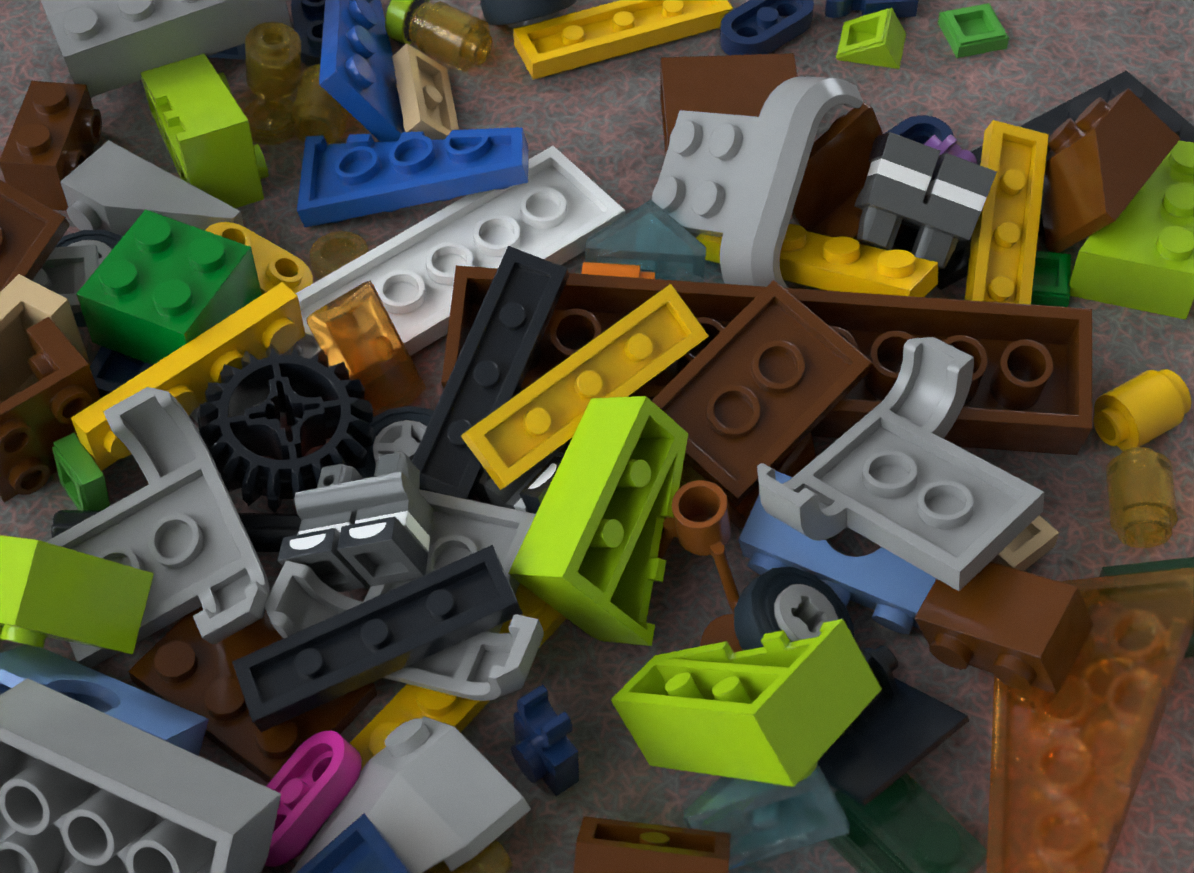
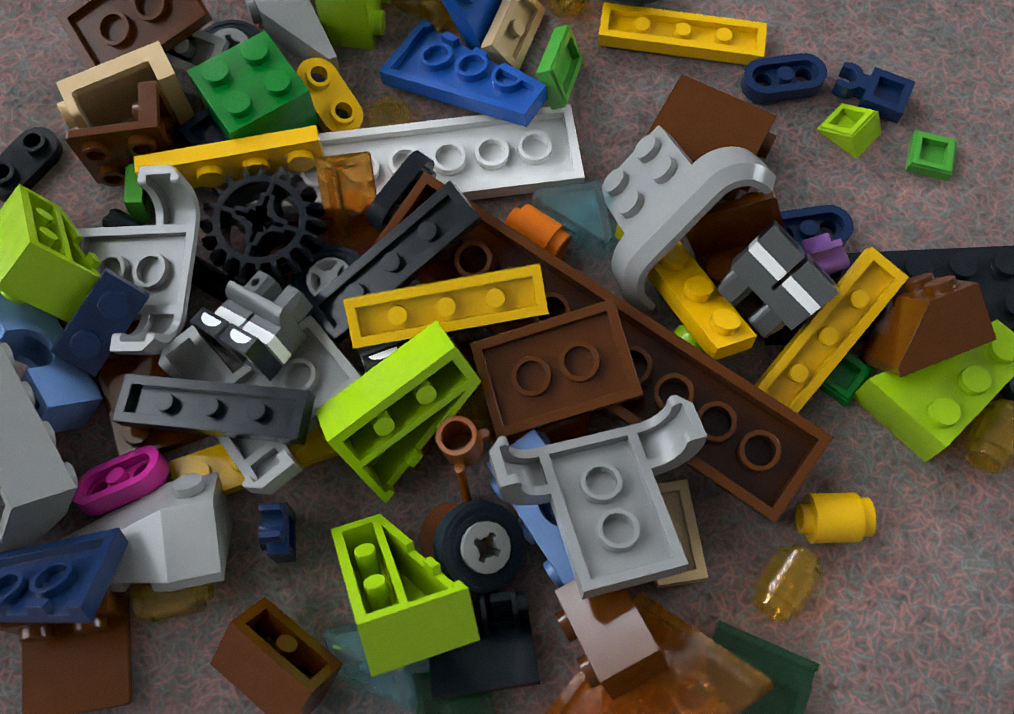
camera: 30 degrees right, 15 degrees up
(156, 622) = (104, 311): none -> dark blue plate
(427, 330) = (397, 189): none -> black plate
(516, 109) = (560, 66): none -> bright green tile

